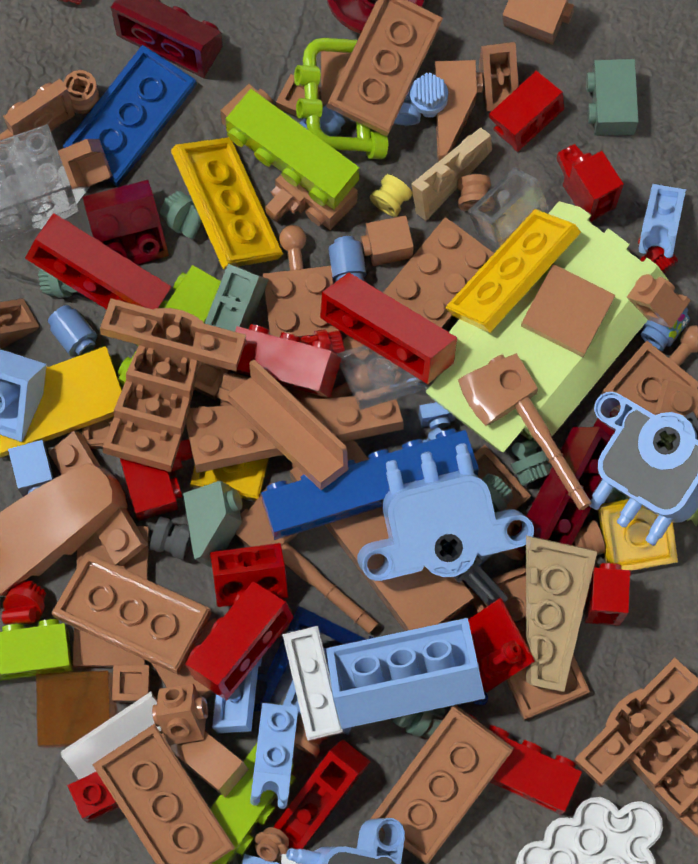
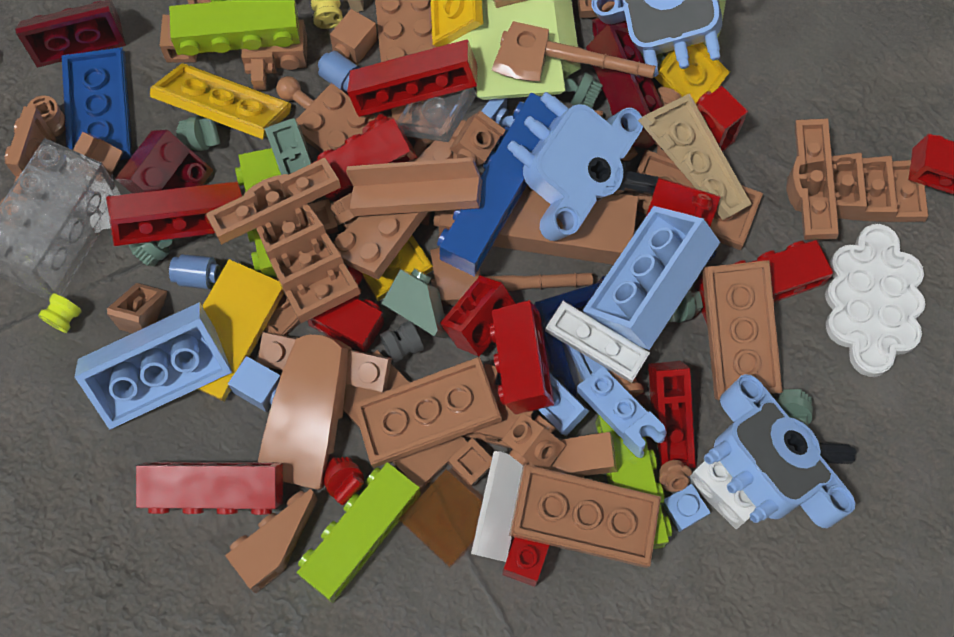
camera: 45 degrees left, 5 degrees down
(388, 418) = (481, 129): none -> nougat brick

